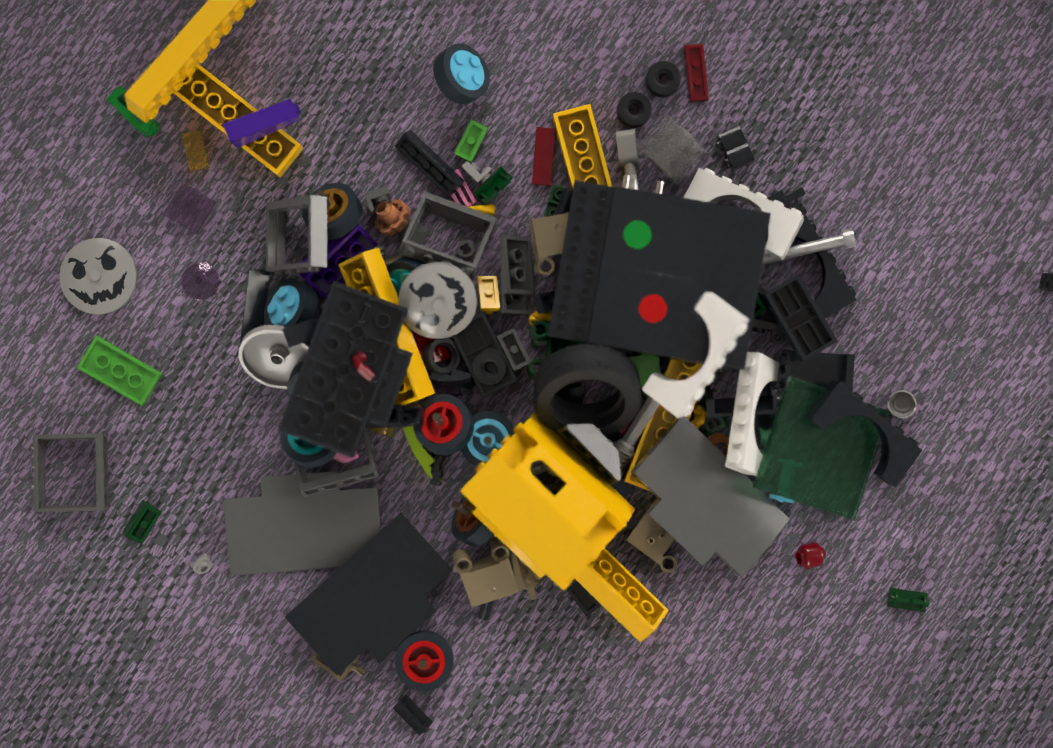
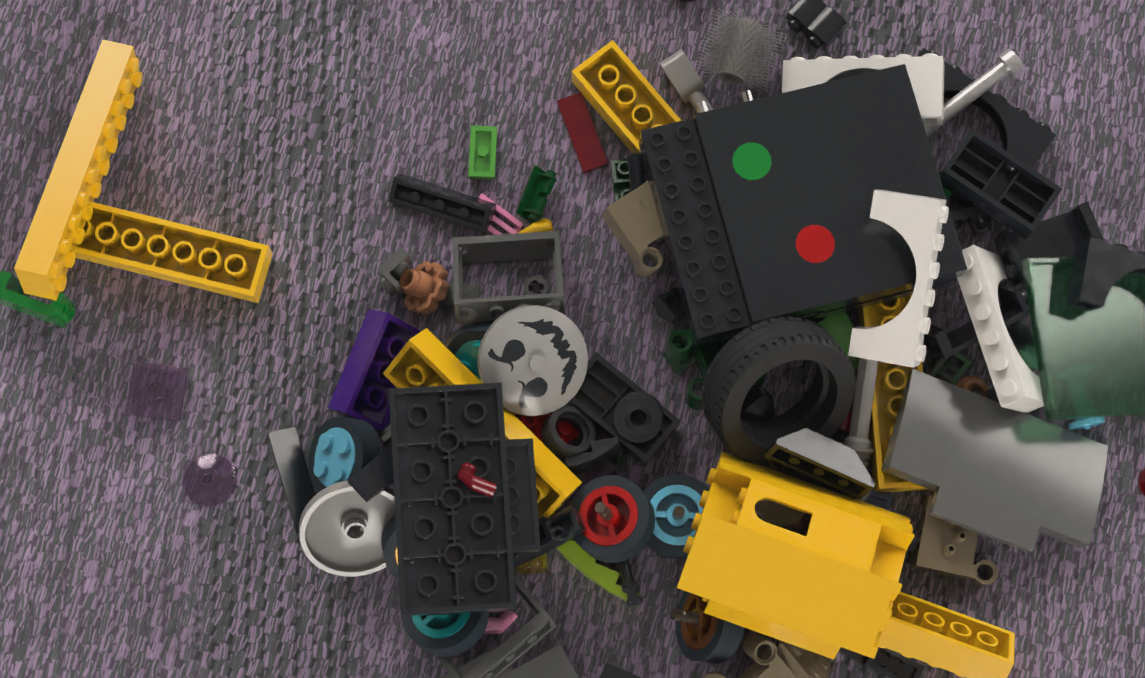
camera: 25 degrees left, 10 degrees down
(98, 276) = (72, 532): light grey dish -> none
(119, 370) = (150, 644): bright green tile -> none
(195, 151) = (134, 316): clear yellow plate -> none
(261, 123) = (207, 237): dark purple slope -> none
(276, 234) = (283, 373): dark grey window -> none
(342, 209) = (345, 312): black wheel -> none
(461, 73) = (434, 73): wheel -> none
(473, 171) = (503, 189): light grey bracket -> none
(488, 294) = (593, 329): yellow plate -> none
(513, 350) = (658, 384): dark grey brick -> none
(516, 275) = (616, 293): dark grey slope -> none
(537, 317) = (667, 328): yellow arm -> none
(642, 102) = (668, 42): black tyre -> none
(699, 416) = (932, 364): yellow arm -> none
(779, 196) = (914, 47): black slope -> none

